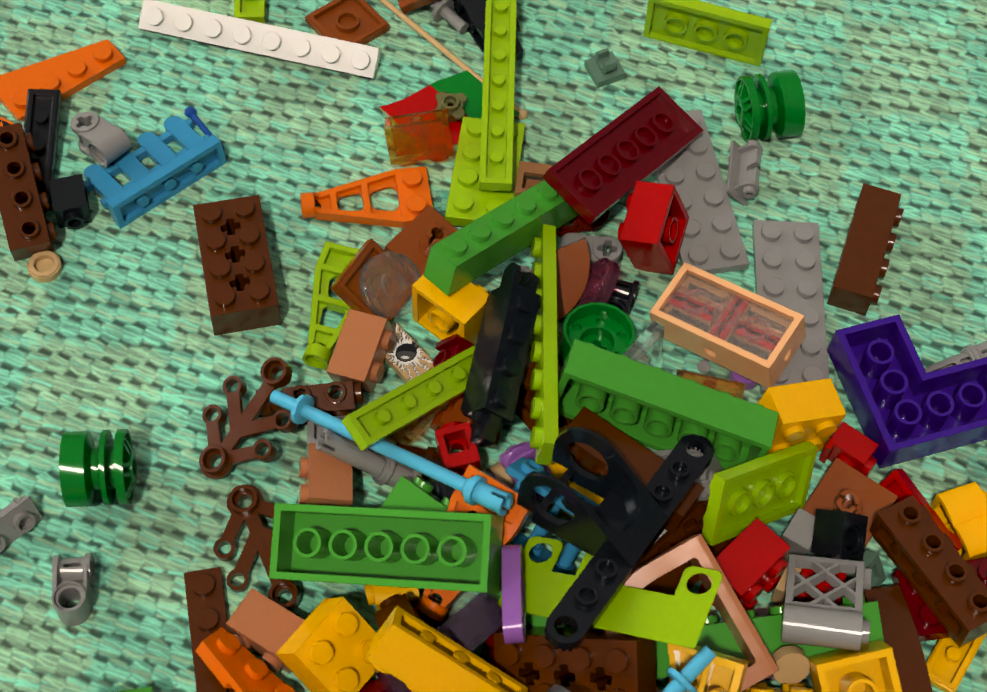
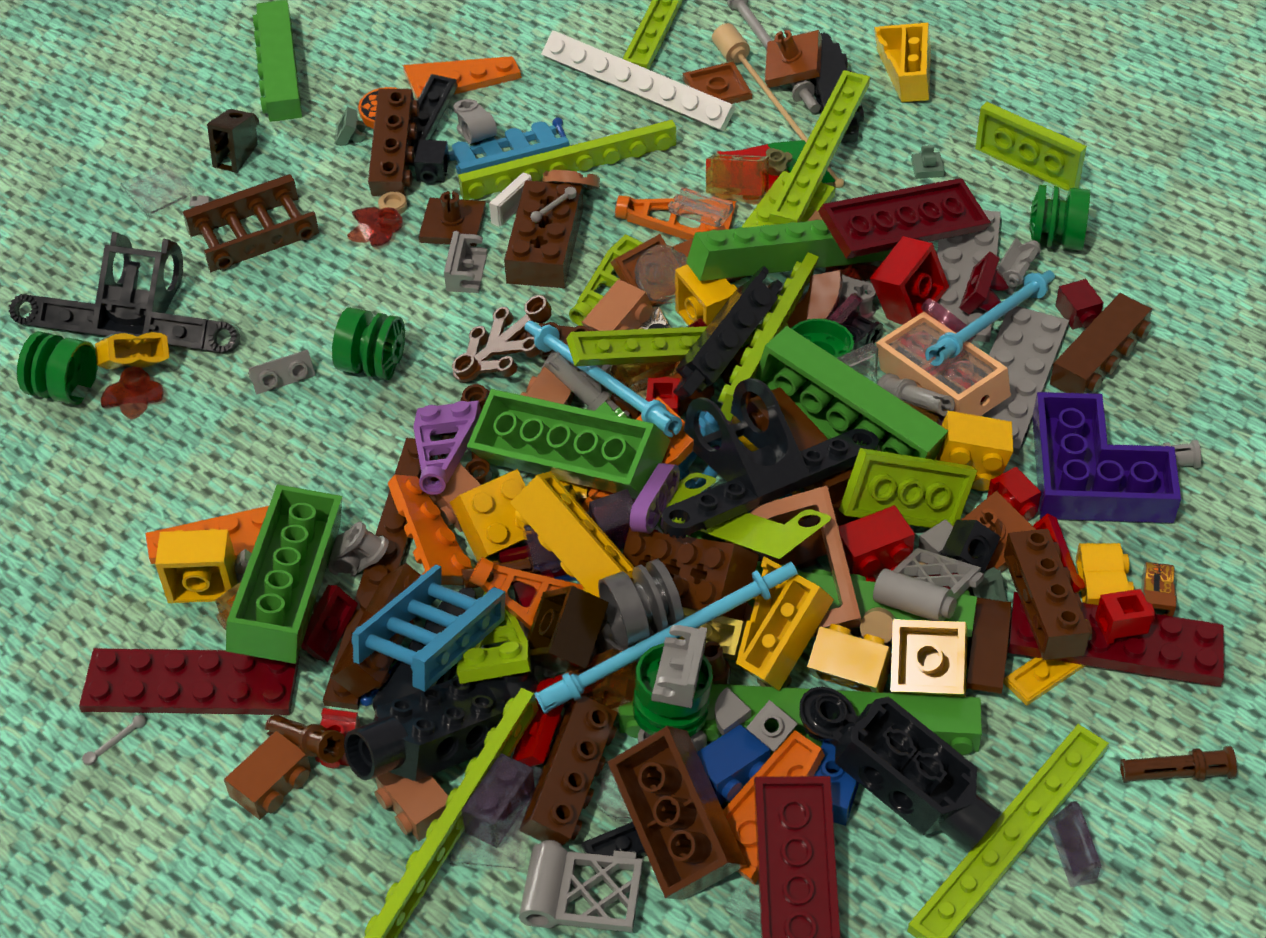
camera: 25 degrees right, 10 degrees down
(32, 304) = (375, 225): none -> clear red plate
(73, 581) = (316, 424): light grey piece -> none
(123, 272) = (449, 215): none -> reddish brown tile
(161, 325) = (464, 263): none -> light grey hinge
(180, 229) = (507, 202): none -> white tile
(216, 166) = (570, 158): none -> lime plate
(222, 540) = (442, 419): none -> medium lavender plate
(241, 189) = (572, 177): none -> nougat tile
(252, 212) = (570, 193): none -> light grey hinge
(396, 182) = (703, 204): none -> clear tile
(701, 361) = (909, 392): none -> light grey pin
(712, 266) = (944, 316): none -> clear pink tile
(723, 209) = (982, 279): none -> dark red tile
(739, 304) = (951, 344): none -> medium azure bar
(823, 202) = (1078, 303): none -> dark red brick

